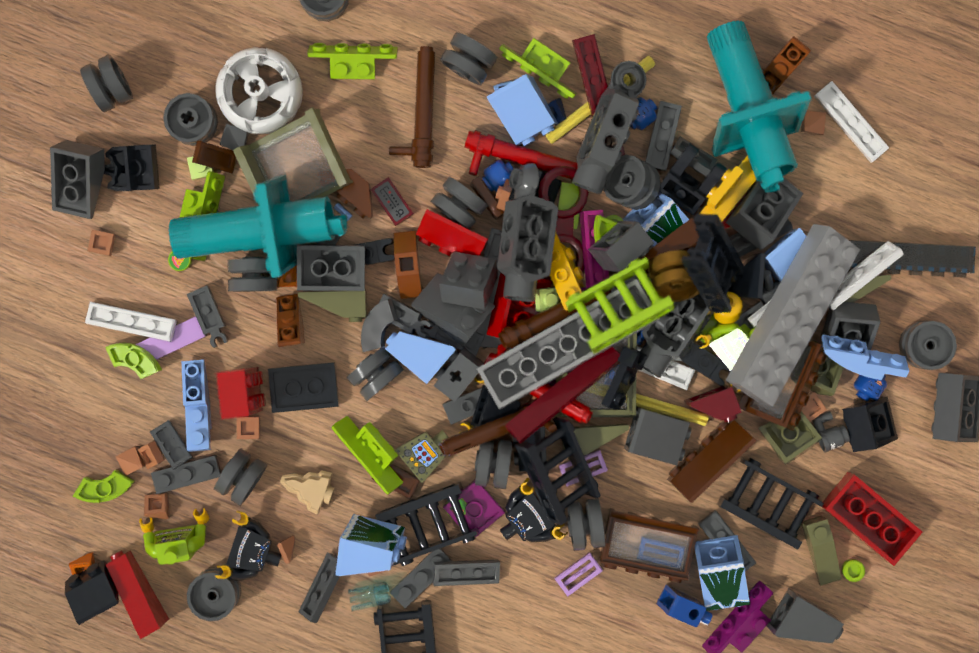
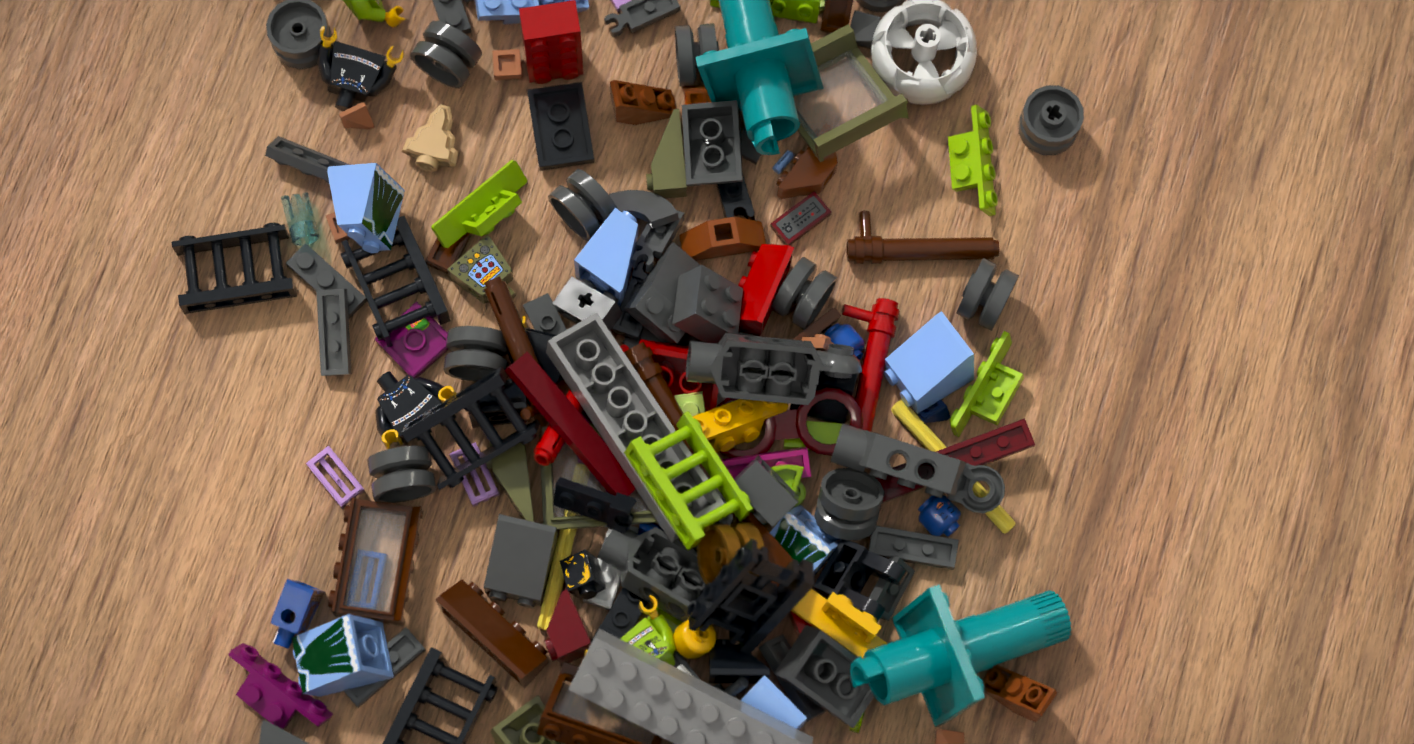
camera: 85 degrees right, 15 degrees down
(671, 389) = (583, 575): none -> black brick

